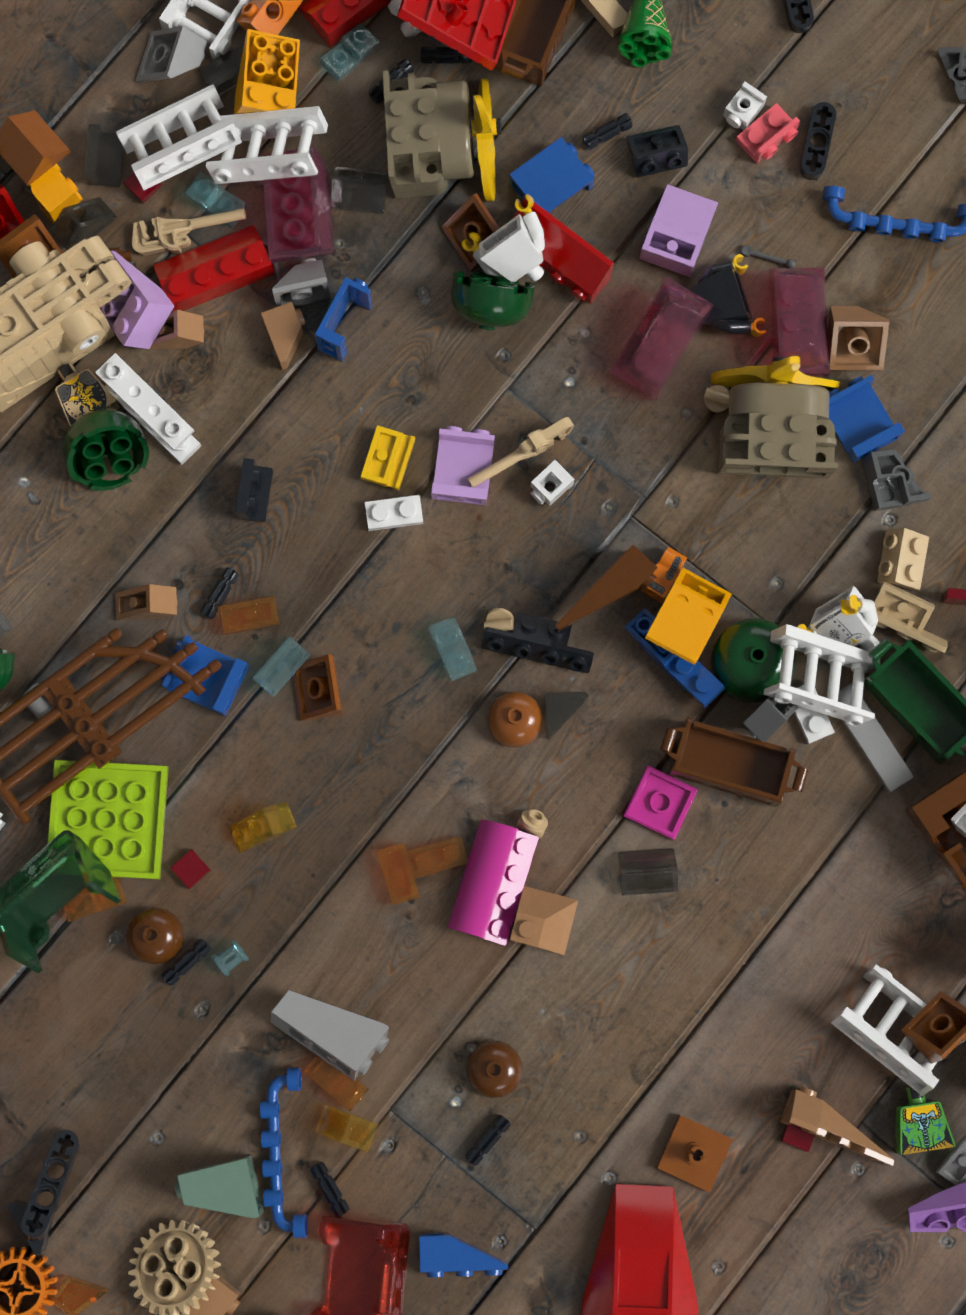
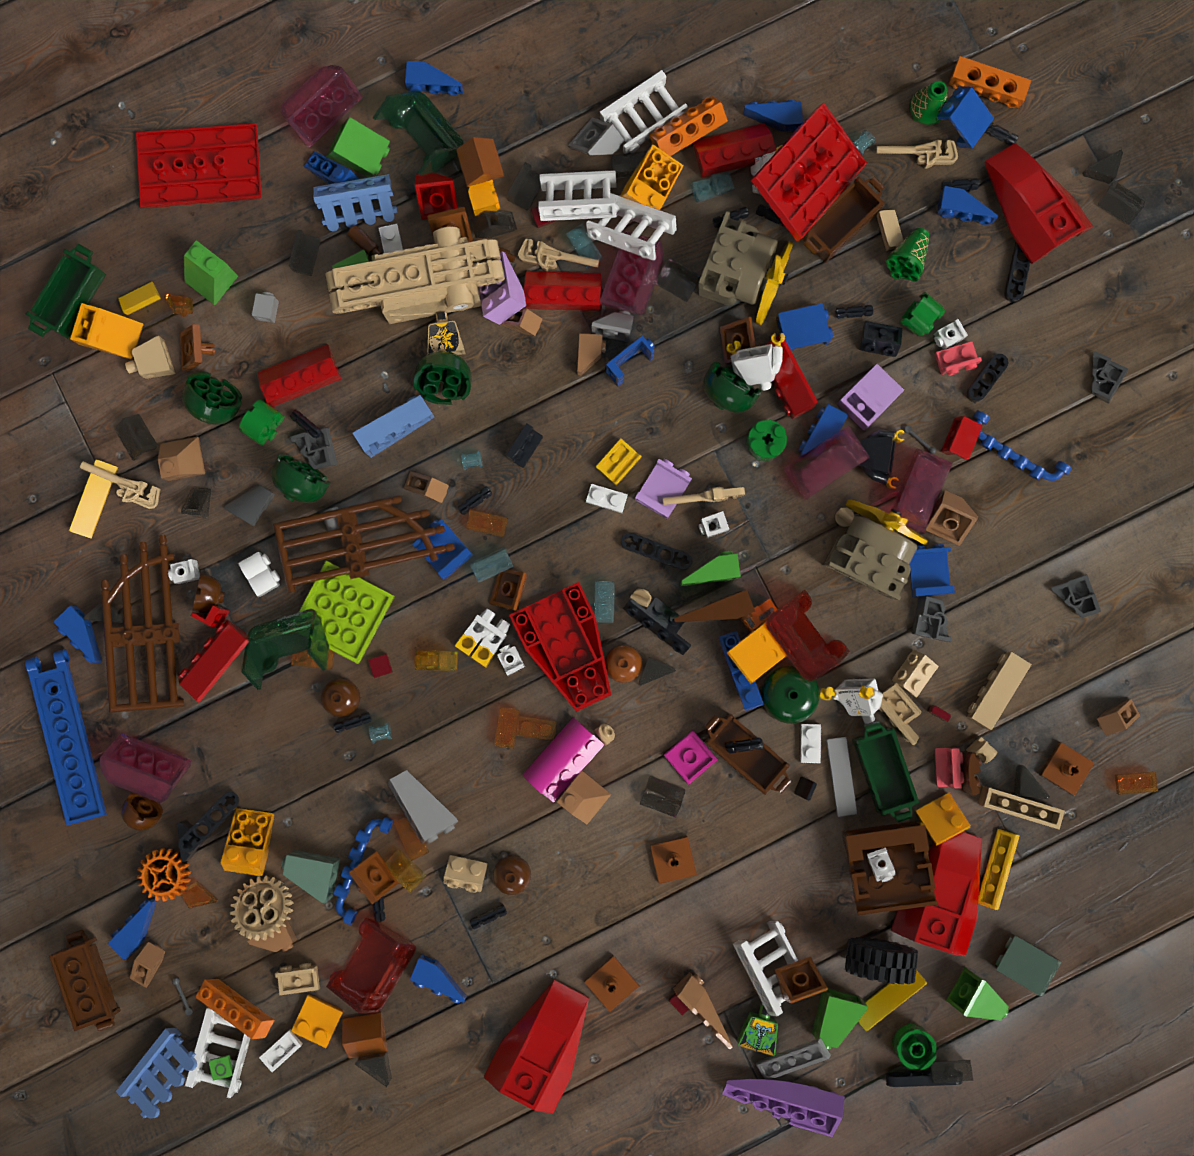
camera: 30 degrees right, 5 degrees up
(66, 541) = (393, 426): none -> medium blue wedge
(115, 1189) = (248, 842): none -> light orange slope
(148, 409) = (480, 364): white fence -> none
(192, 541) = (472, 460): none -> clear light blue bush
(309, 1156) = (373, 878): none -> dark orange tile
(316, 760) = (489, 635): none -> white hips
(367, 790) = (514, 666): none -> white brick
(428, 726) = (566, 645): none -> red wedge
(430, 1096) = (465, 874): none -> tan bracket
(492, 557) = (655, 554): none -> black beam
(571, 329) = (774, 433): none -> green brick
(585, 537) = (721, 568): none -> bright green slope
(641, 286) = (829, 424): none -> blue slope
(696, 96) = (922, 314): none -> green brick
(700, 949) = (673, 860): none -> dark orange tile
(724, 751) = (744, 745): none -> black axle
(734, 580) = (802, 640): none -> clear red windscreen
(768, 718) = (784, 736): dark grey brick -> none
(820, 229) = (961, 437): none -> red panel
(830, 774) = (805, 788): none -> black slope
(837, 655) = (844, 717): white fence -> none

